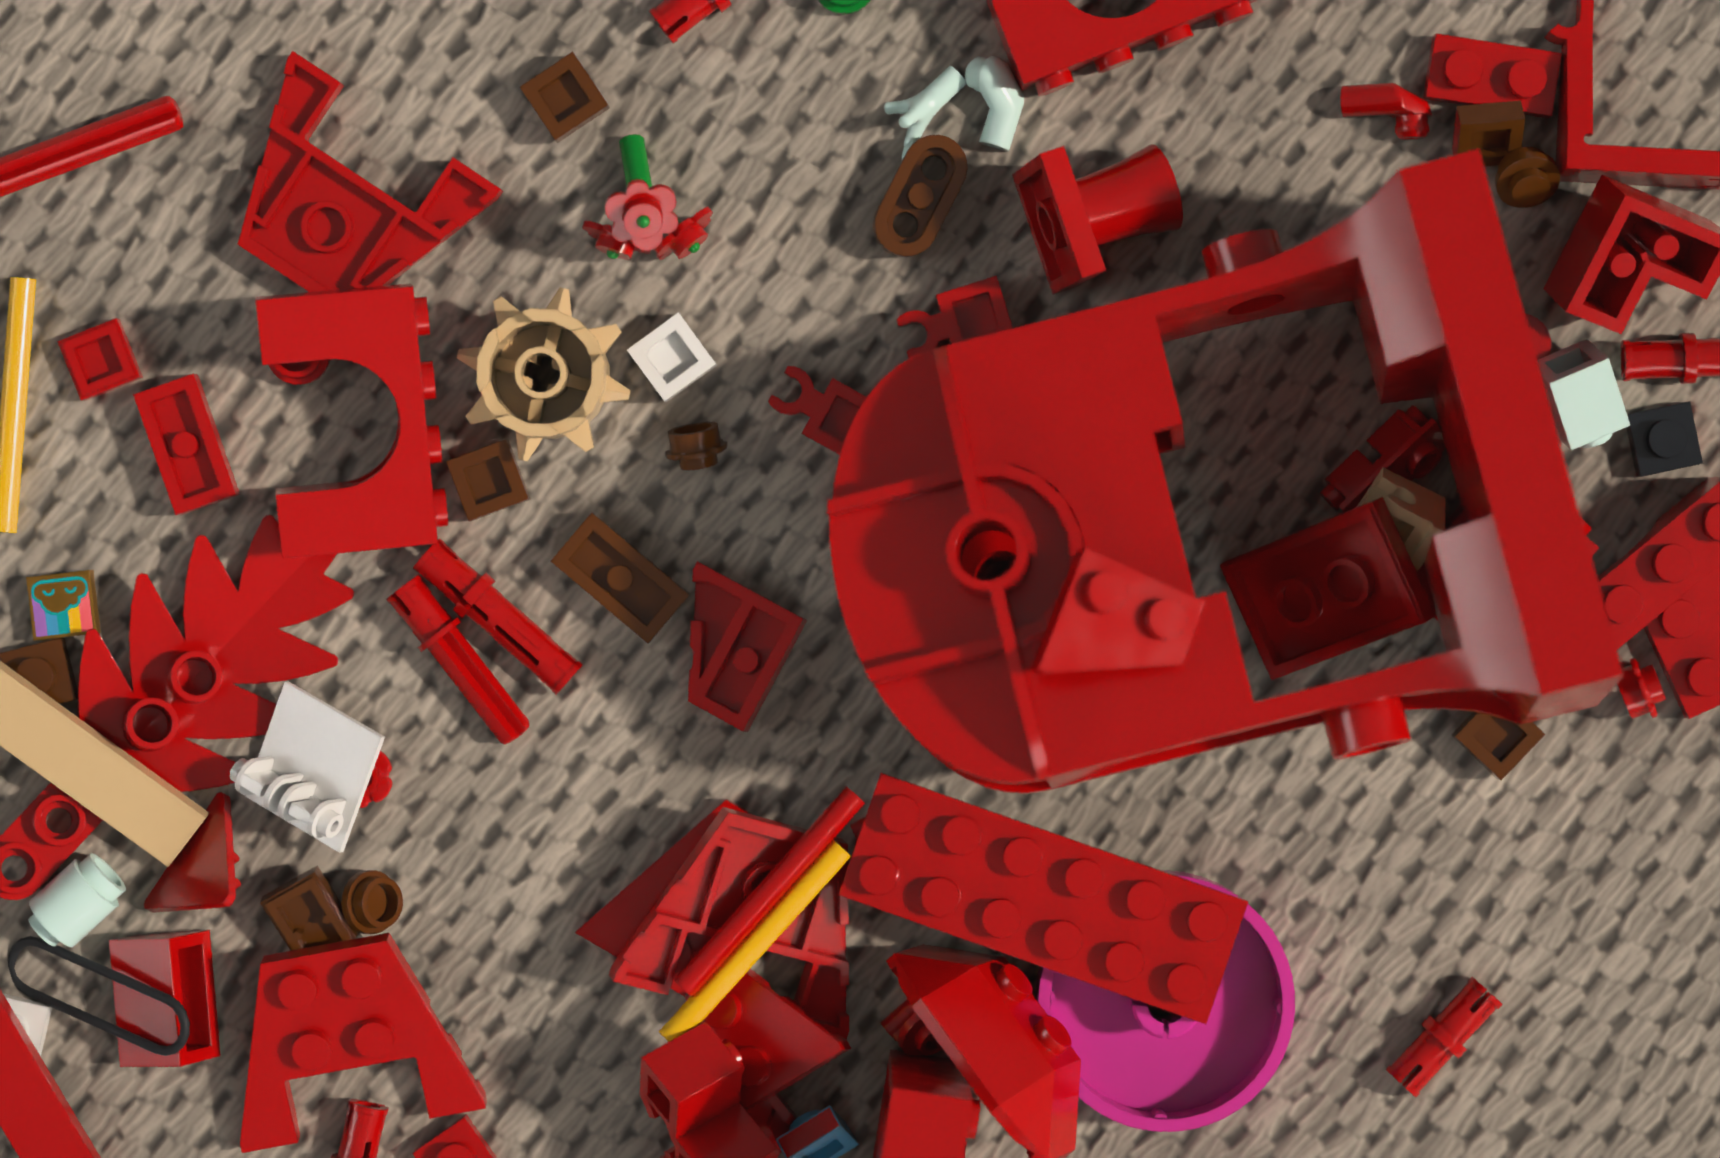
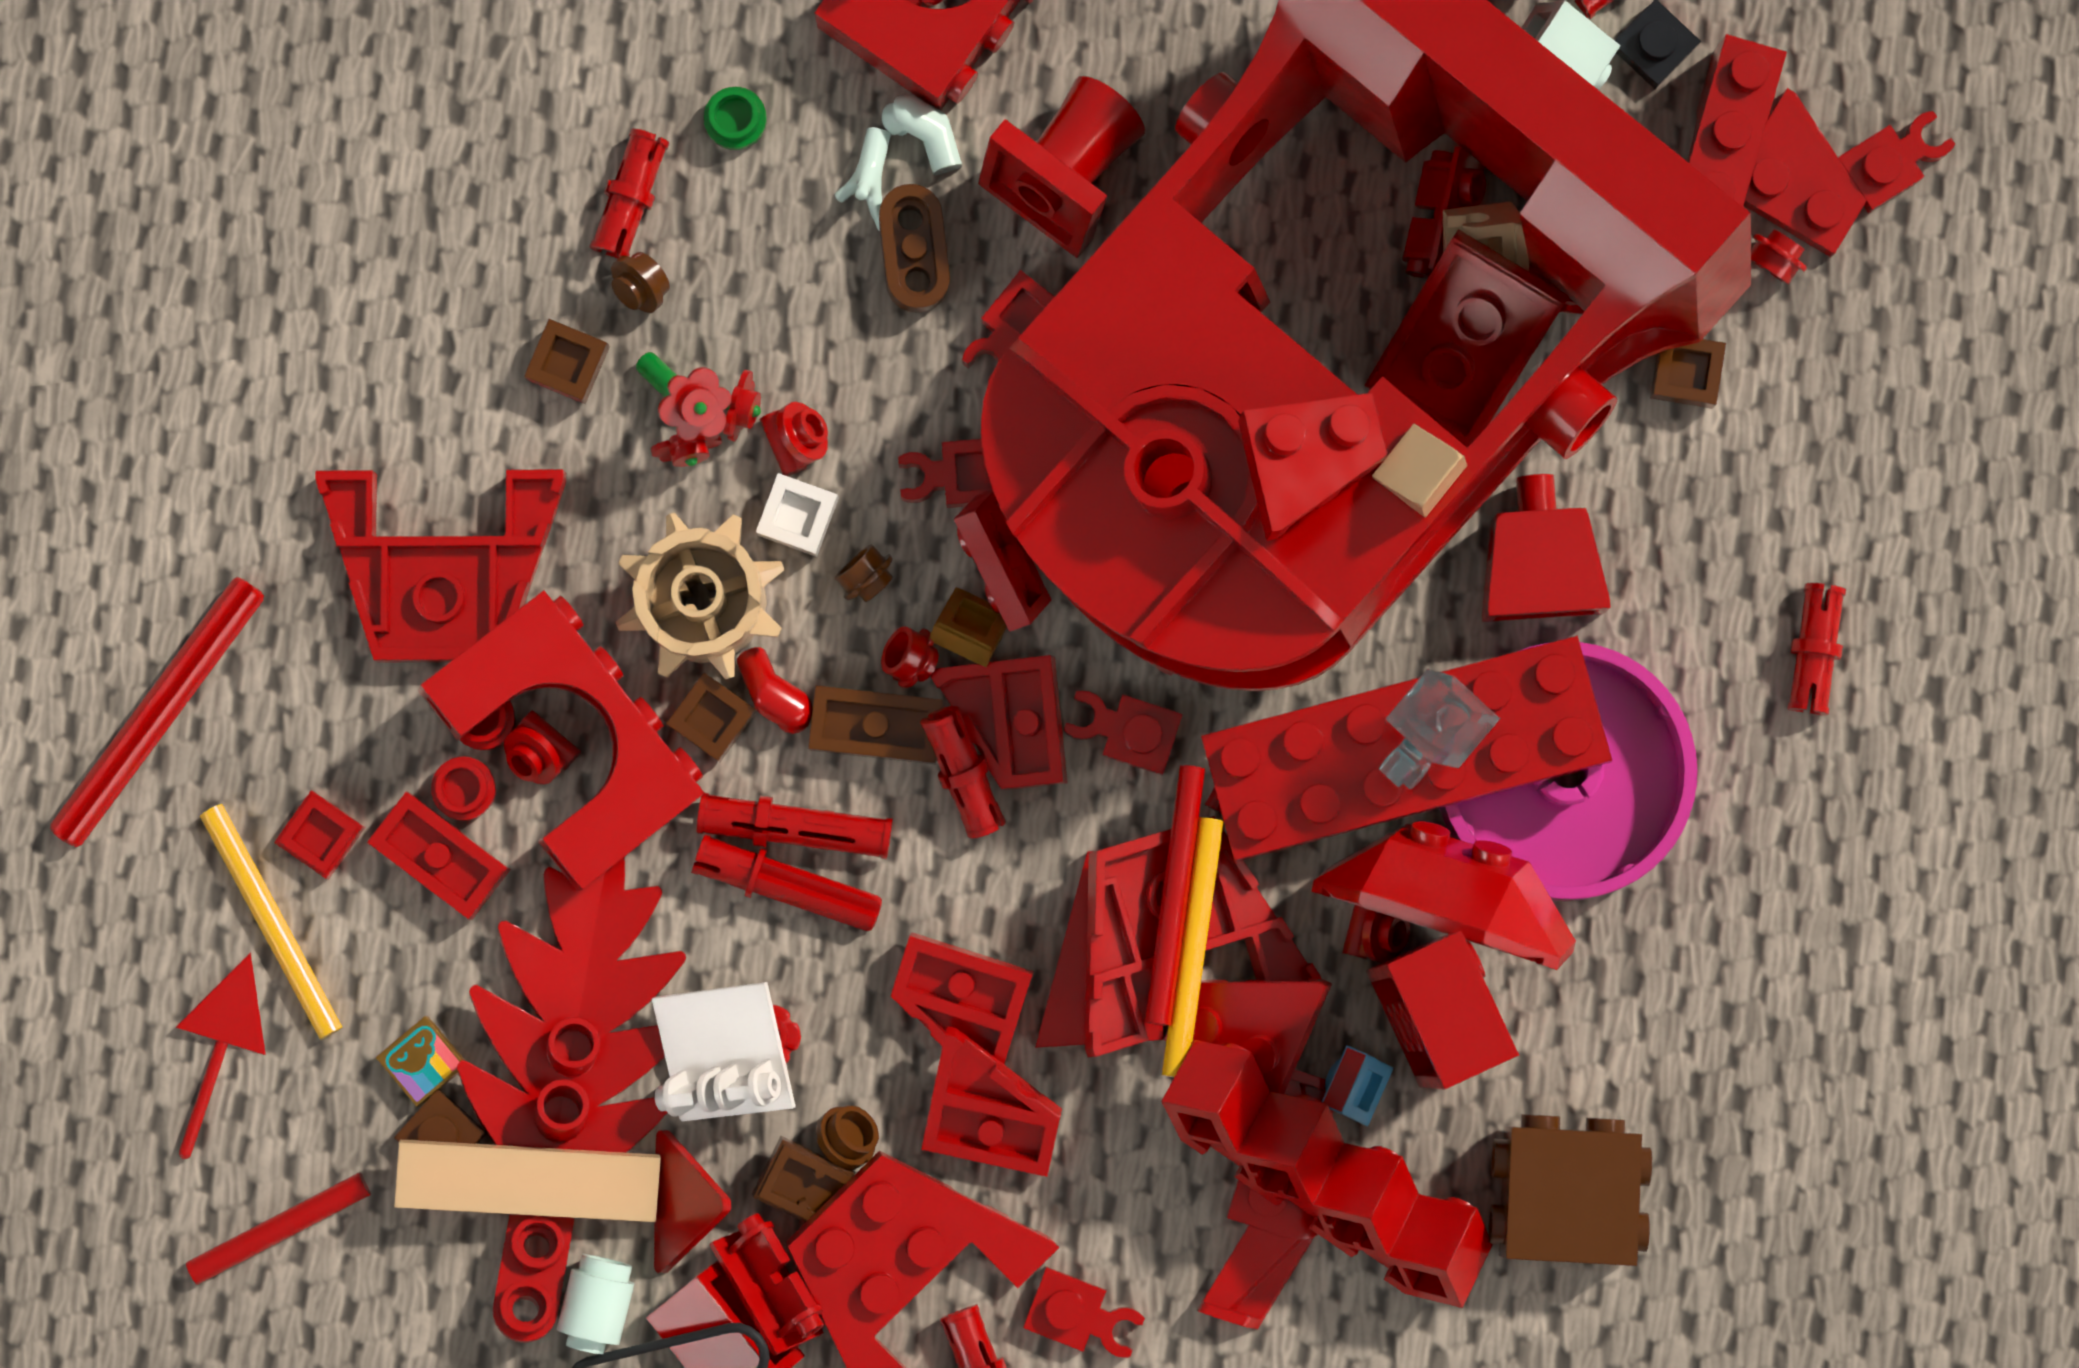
camera: 30 degrees left, 5 degrees down
(223, 982) = (771, 1295): none -> red hinge
(244, 401) = (463, 788): none -> red plate
(326, 410) = (538, 750): none -> red plate
(500, 960) = (988, 1111): none -> red wing
(541, 855) = (961, 991): none -> red wing
(550, 494) = (773, 695): none -> red arm
(665, 667) = (963, 771): none -> red pin
(669, 70) = (639, 282): none -> reddish brown plate
(686, 539) = (909, 656): none -> red plate
(715, 289) = (796, 436): none -> red plate
(753, 549) = (969, 627): none -> pearl gold tile
(807, 530) = (1006, 568): none -> red plate
(832, 727) = (1136, 733): none -> red plate
(1076, 905) = (1439, 726): none -> clear light blue brick
(1201, 694) = (1420, 469): none -> tan slope
(1266, 811) = (1542, 559): none -> red torso

